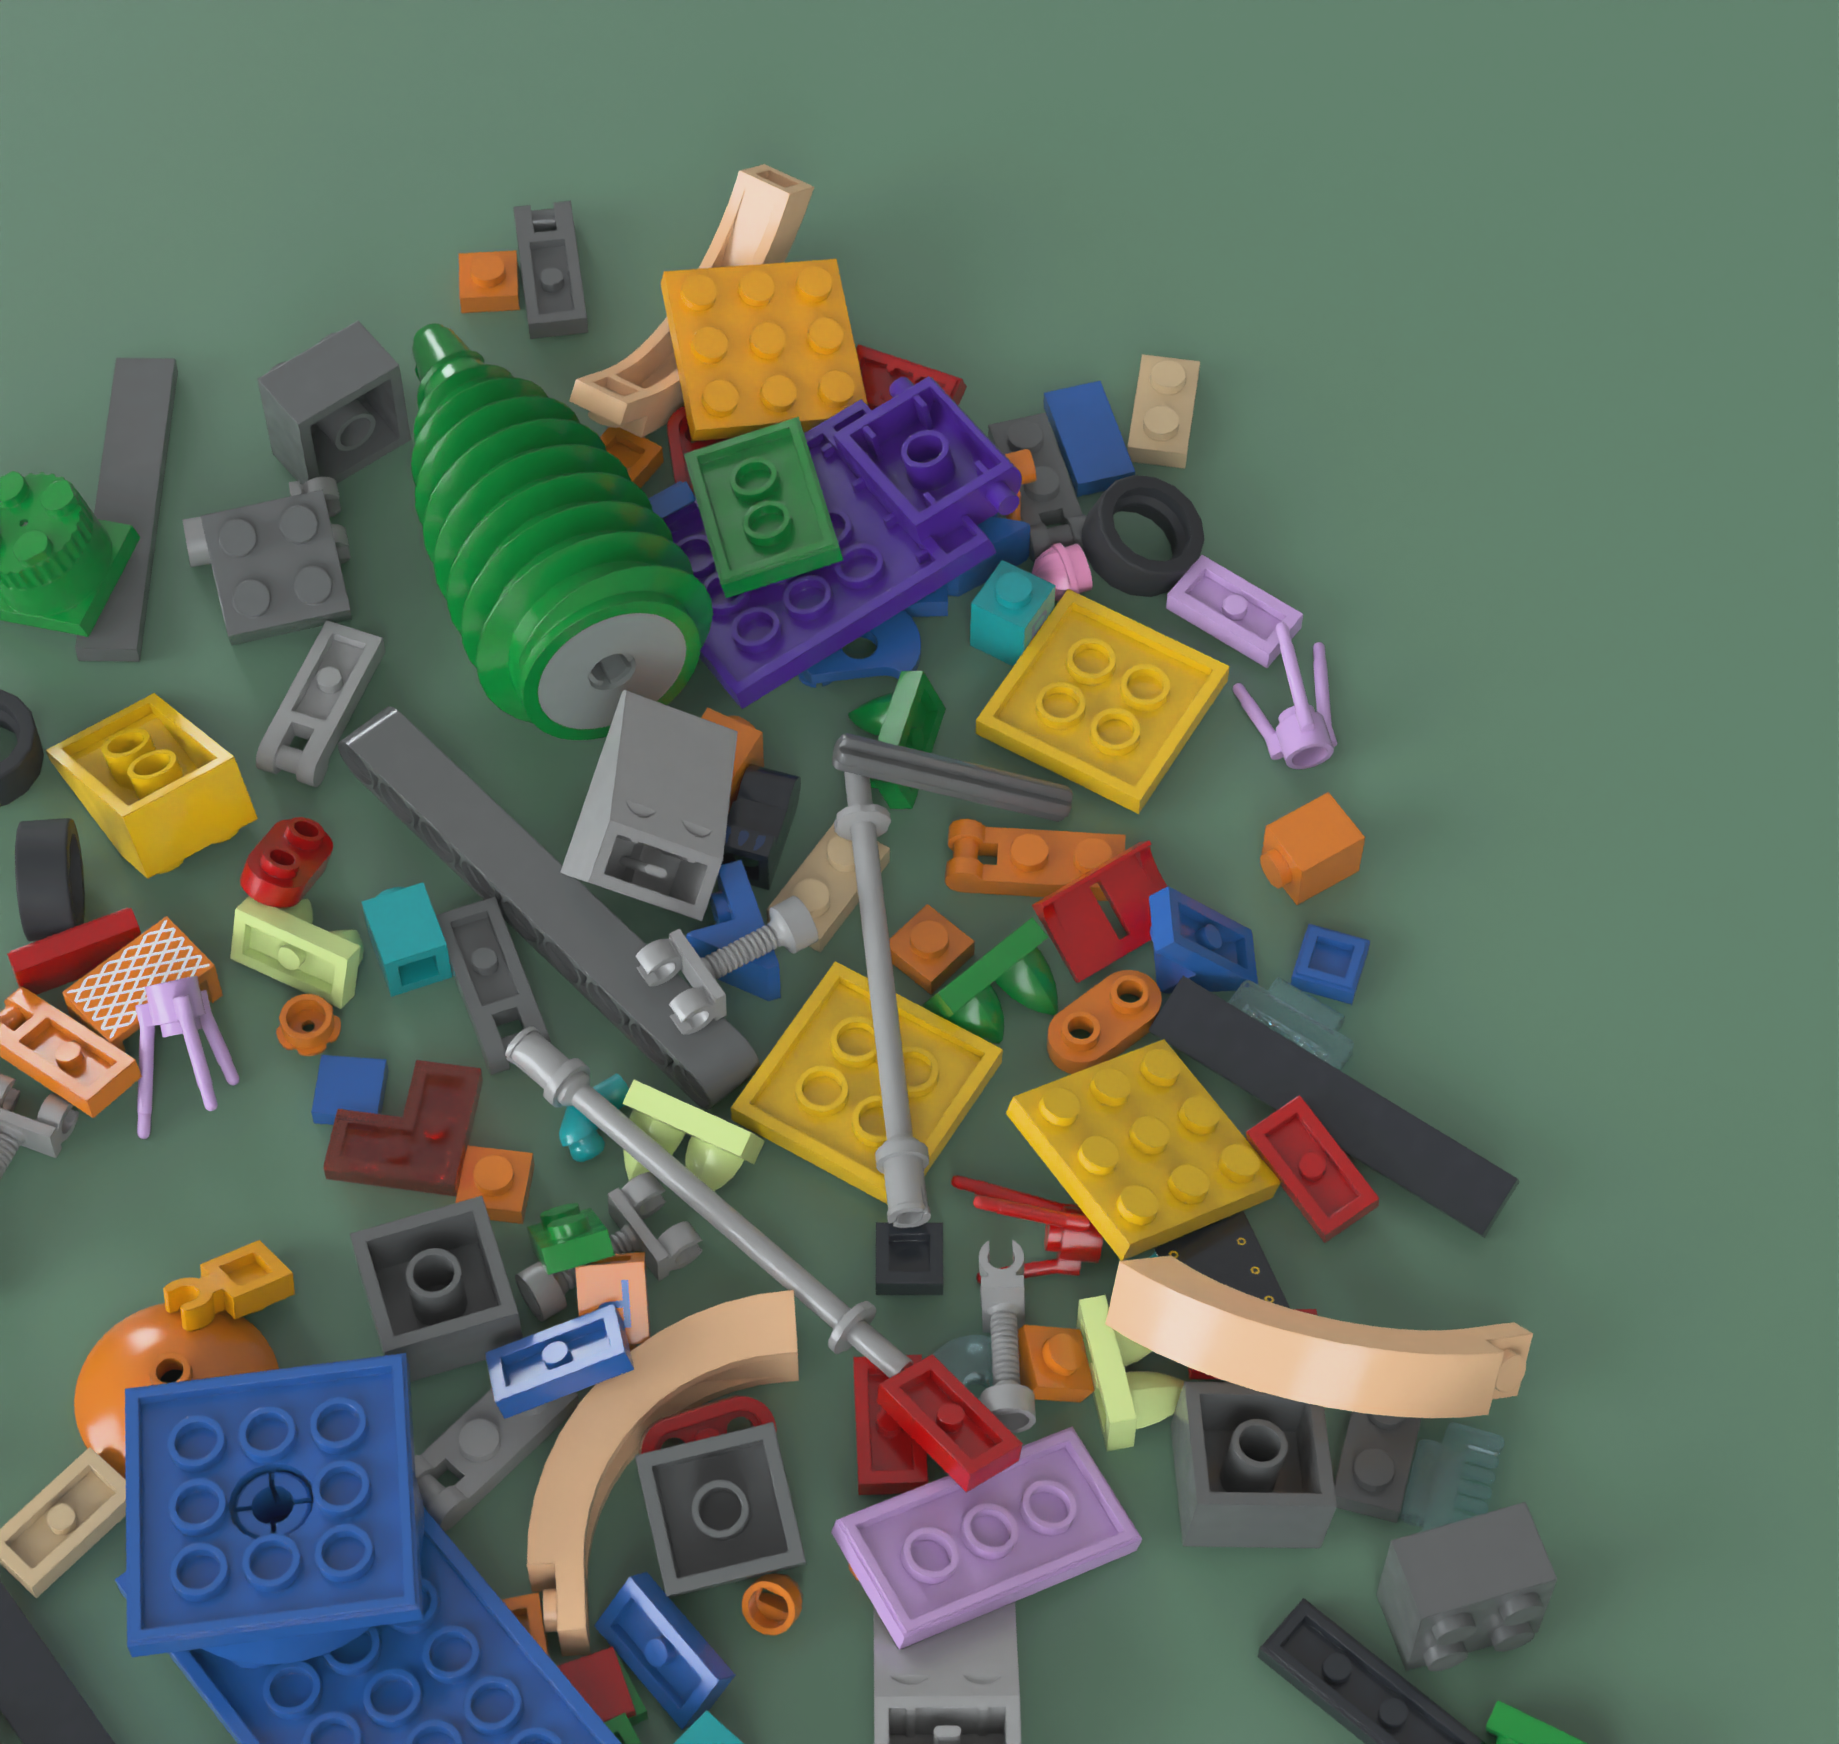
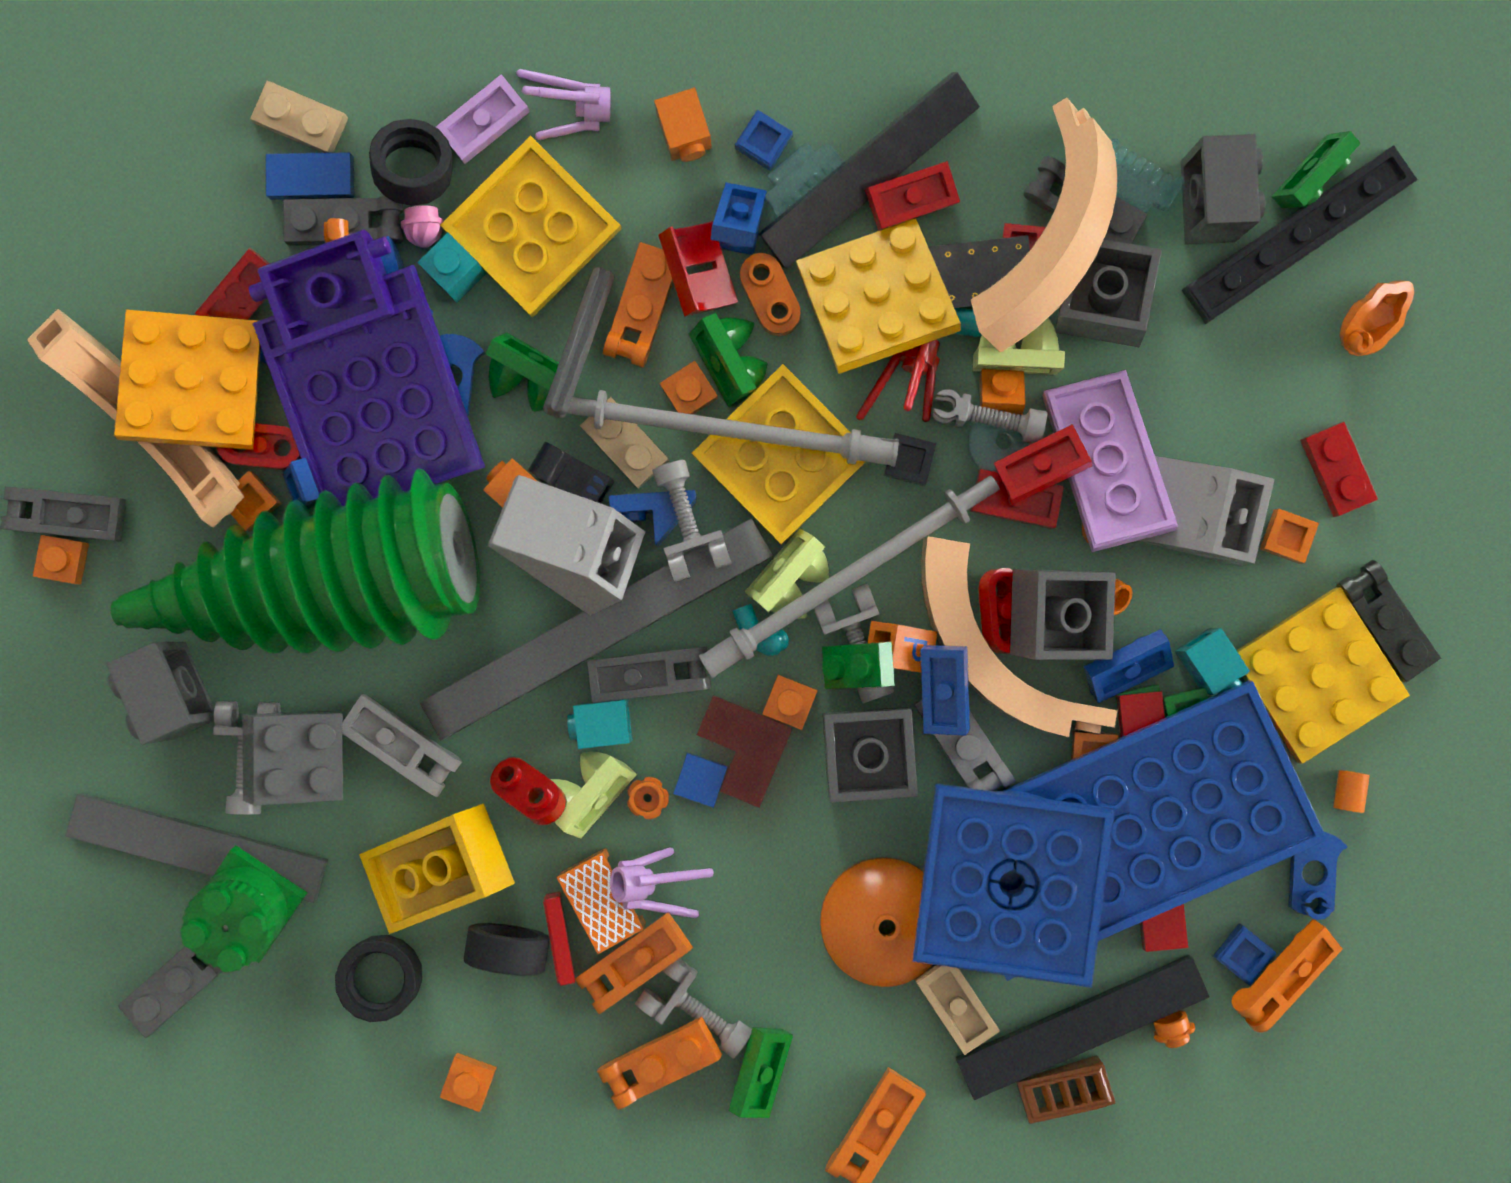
camera: 75 degrees left, 30 degrees up
(233, 1282) = (824, 874): light orange plate -> none
(762, 507) = (329, 413): green tile -> none

